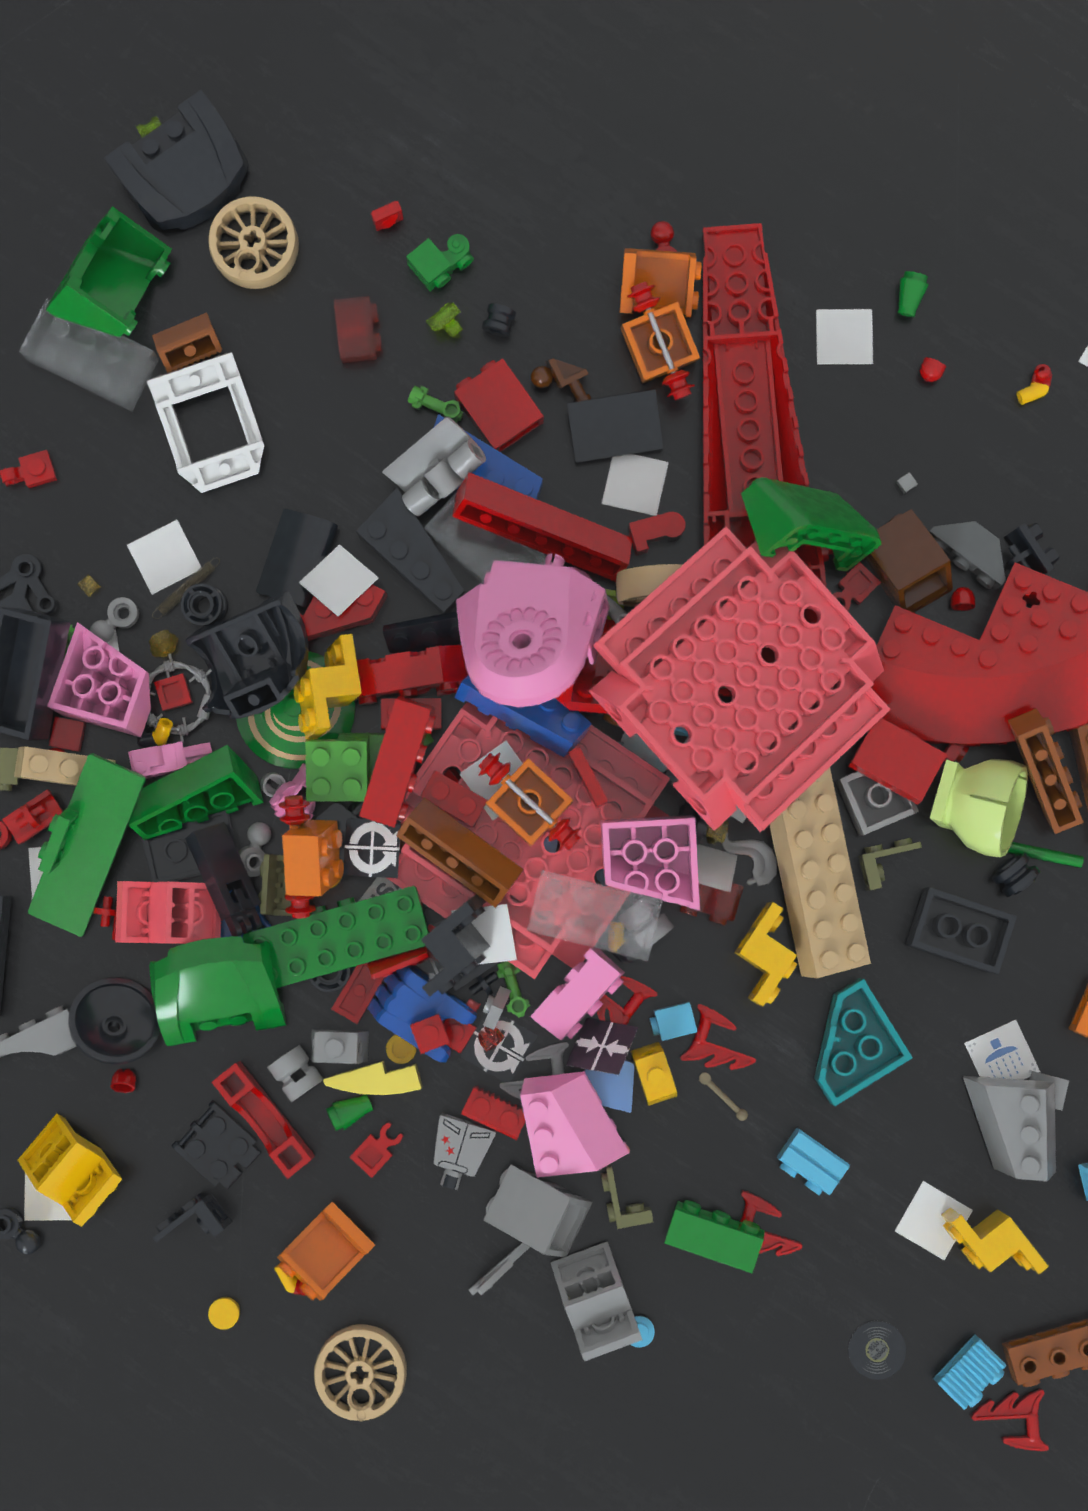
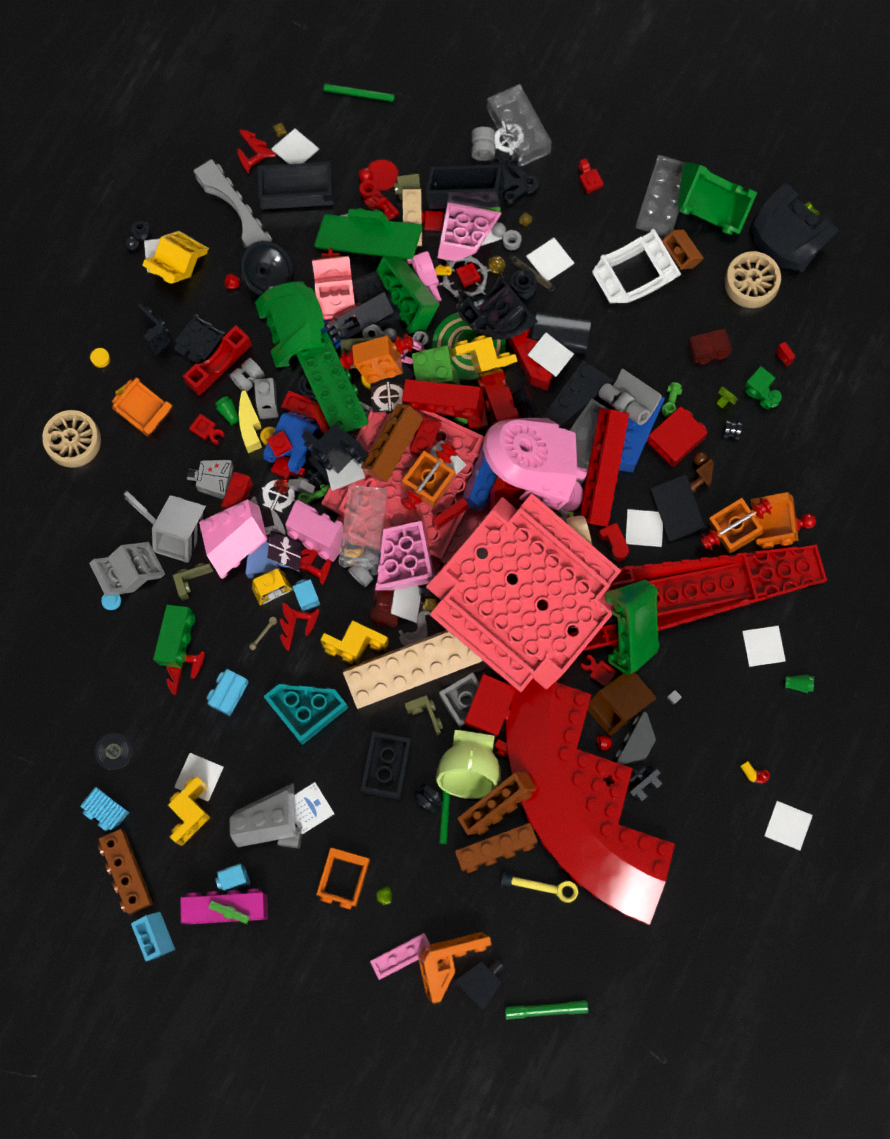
camera: 85 degrees right, 10 degrees down
(932, 369) = (751, 703): red hinge -> none
(1025, 1408) = (84, 850): red piece -> none

